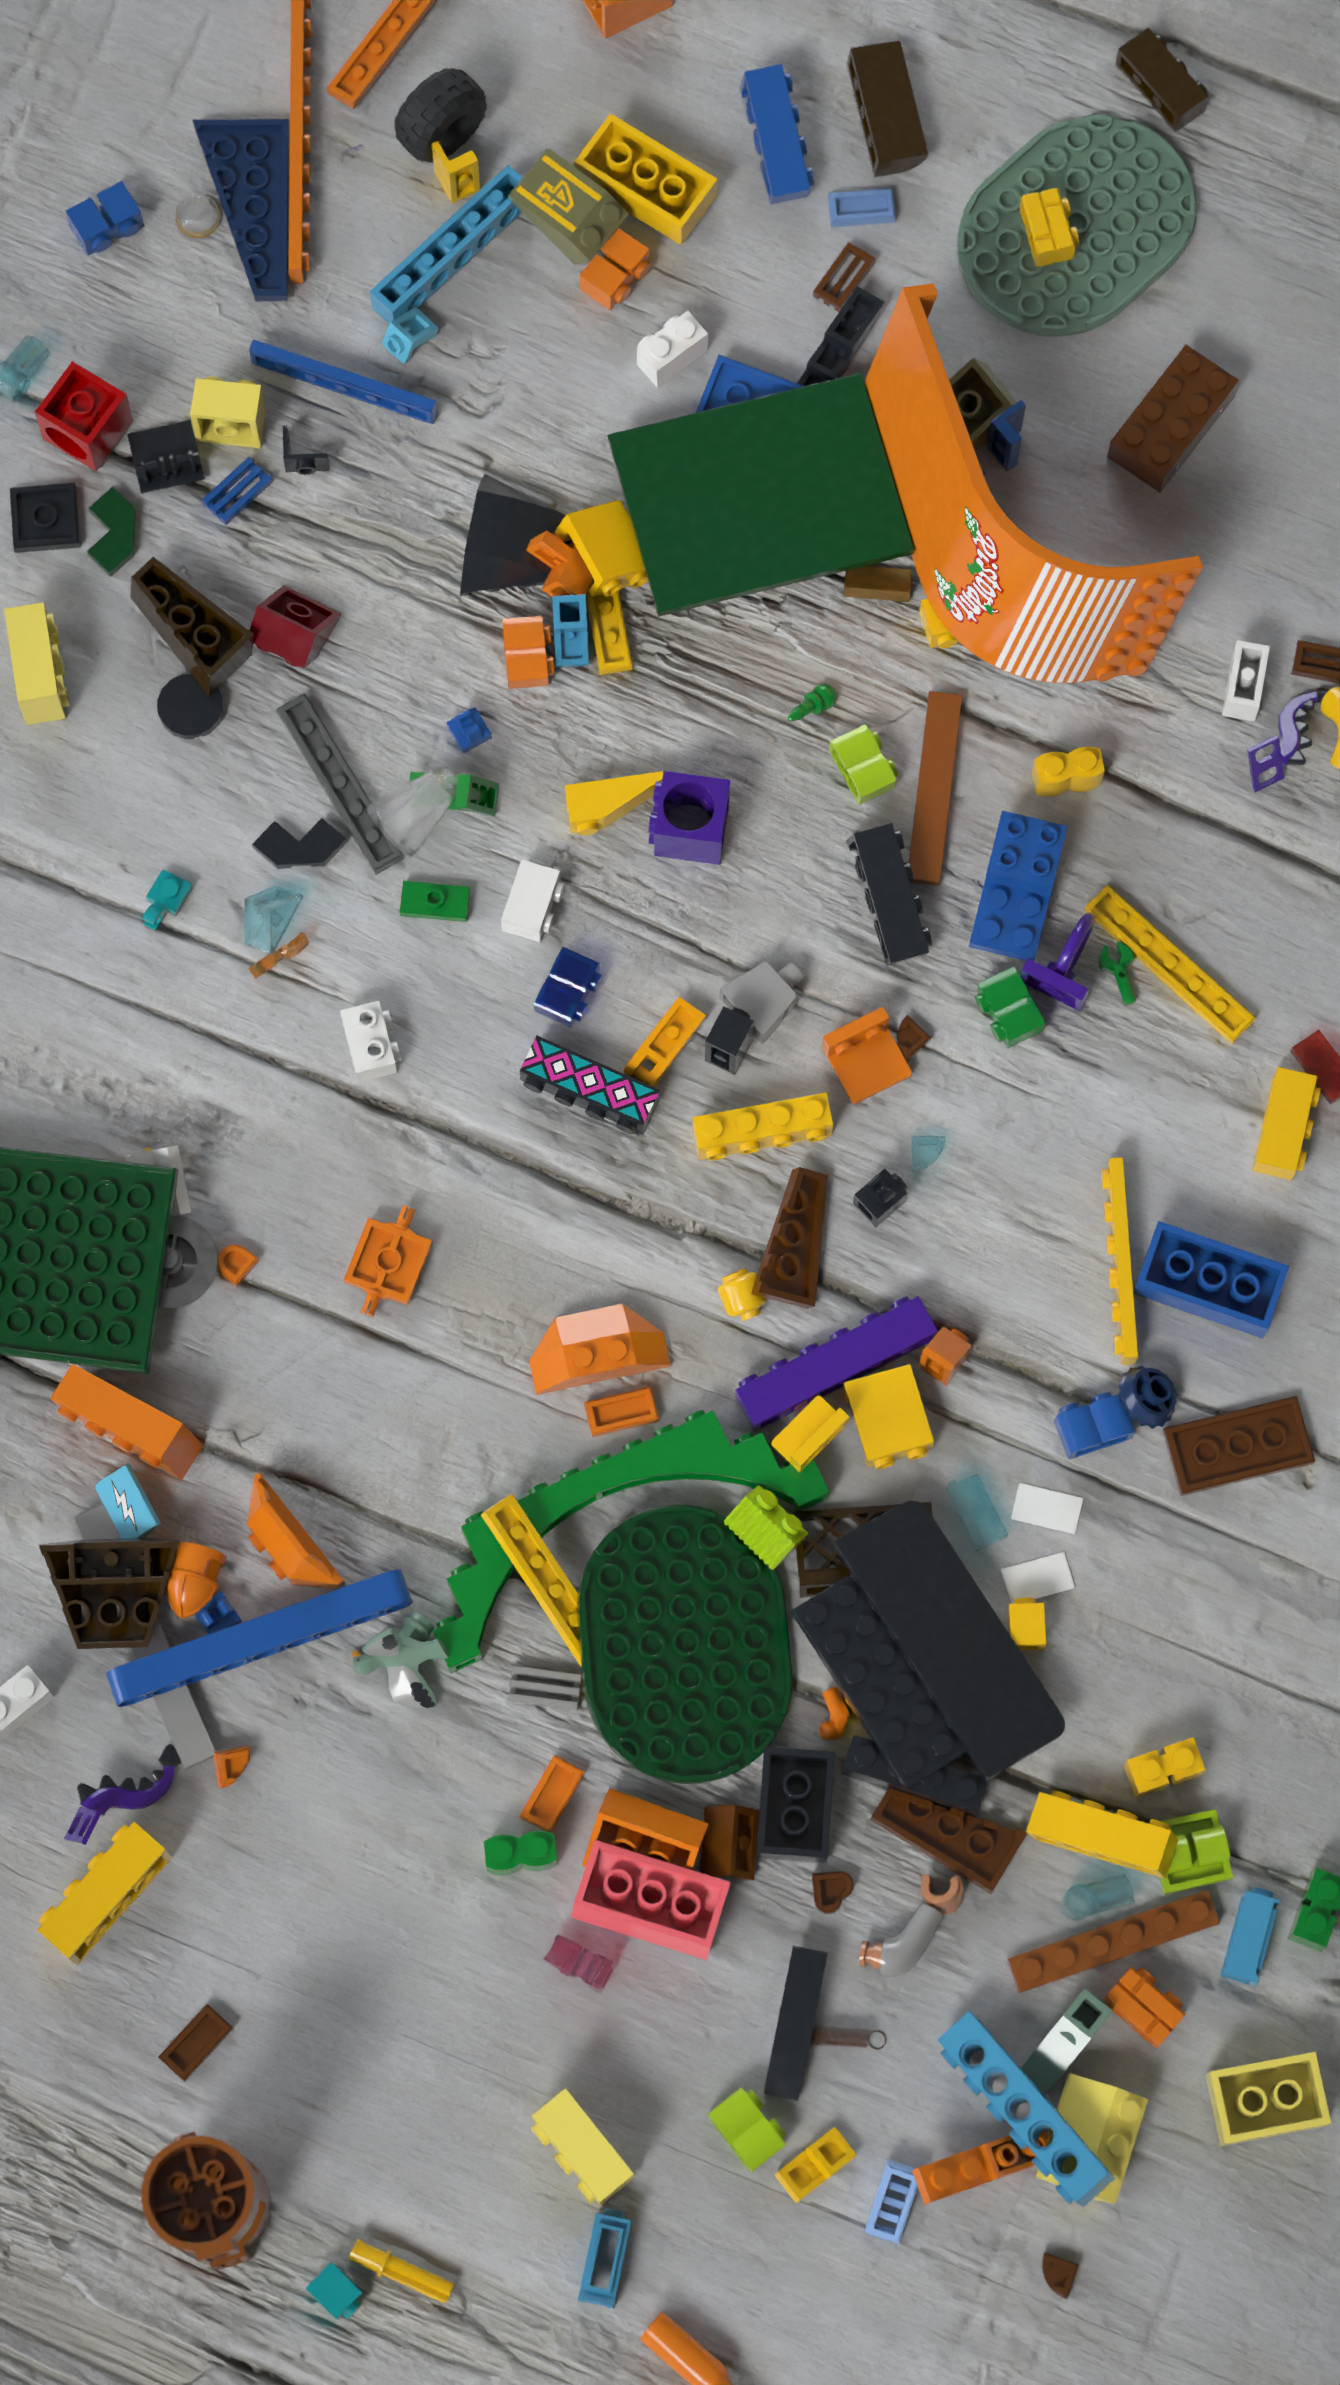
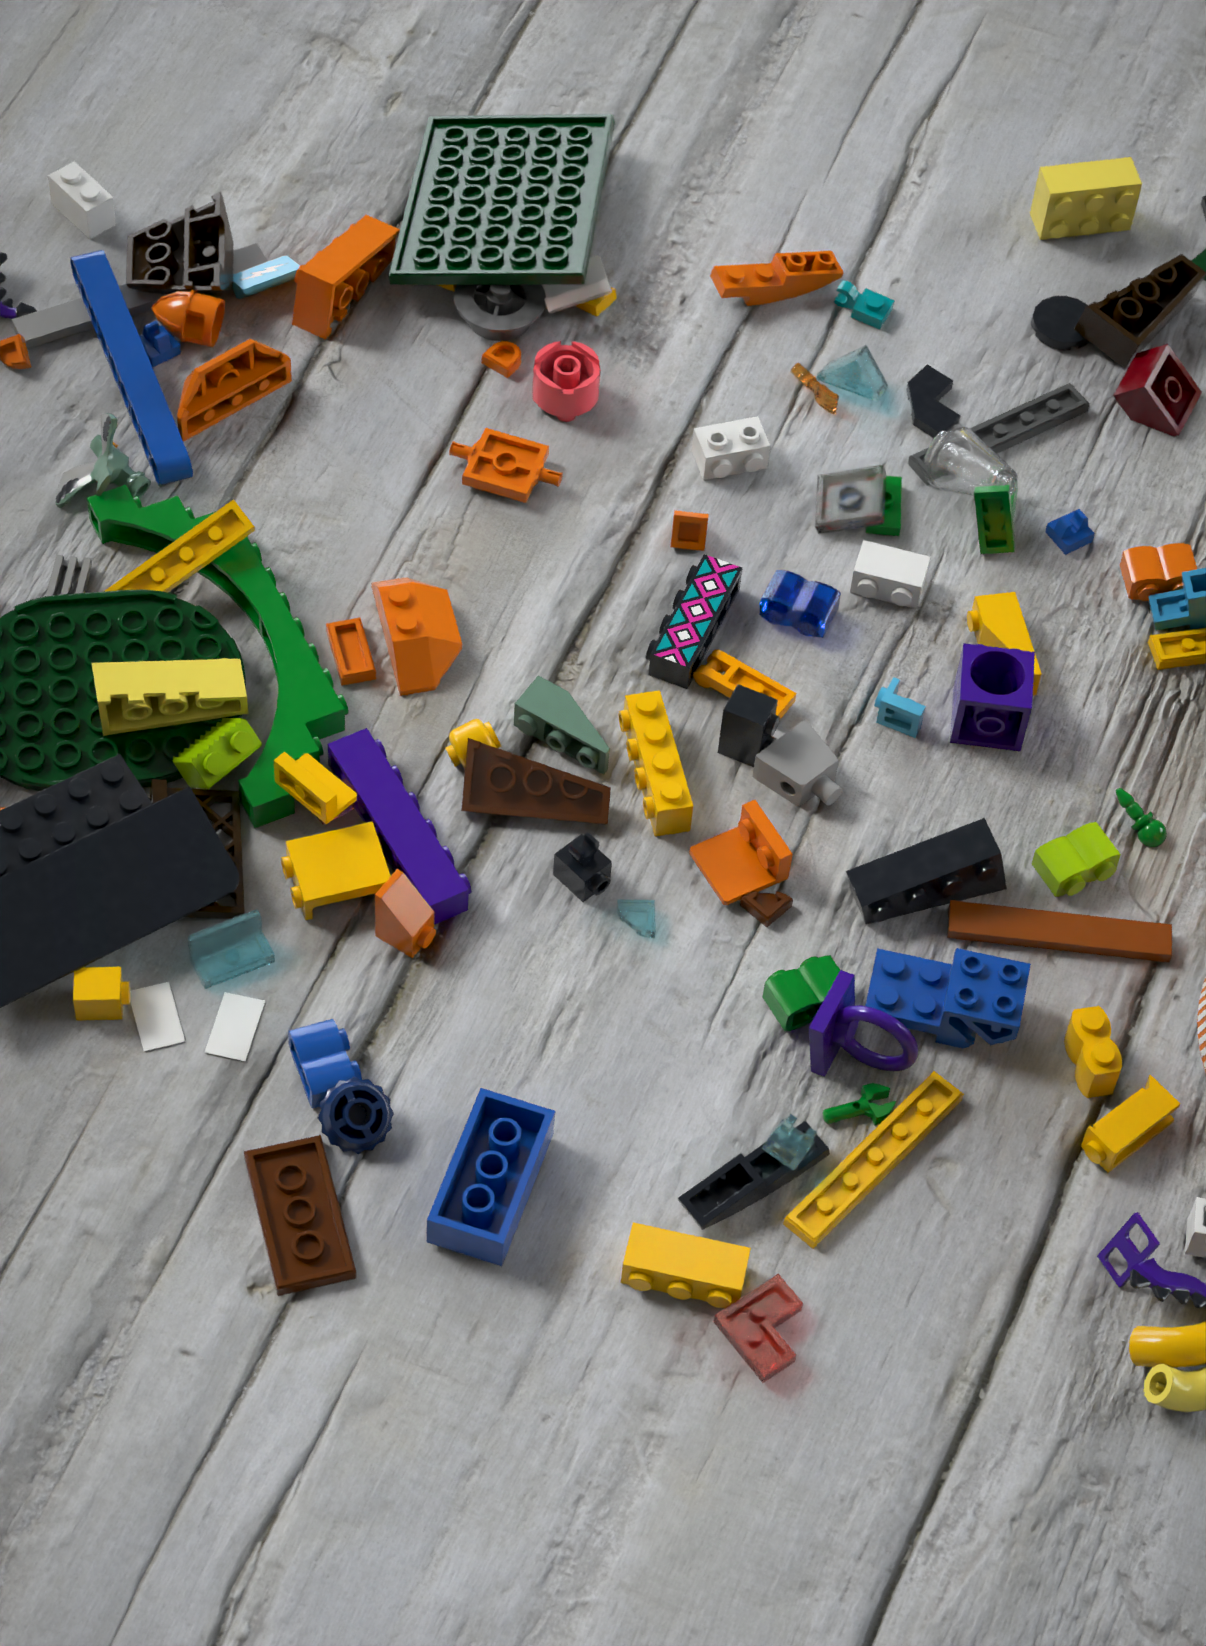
camera: 85 degrees right, 20 degrees down
(132, 982) = (782, 279): none -> orange slope
(285, 1179) = (566, 379): none -> coral brick
(435, 930) = (850, 499): none -> clear smoke tile
(475, 1086) = (689, 530): none -> orange tile
(698, 902) = (898, 712): none -> medium azure bracket
(708, 1570) = (167, 693): none -> light yellow wedge
(710, 1215) = (557, 720): none -> sand green slope
(1121, 1275) = (552, 1092): yellow plate -> none
(1138, 749) = (1130, 1125): none -> yellow window
(1175, 1029) = (789, 1143): none -> clear light blue tile
(1194, 1064) = (745, 1182): none -> black slope

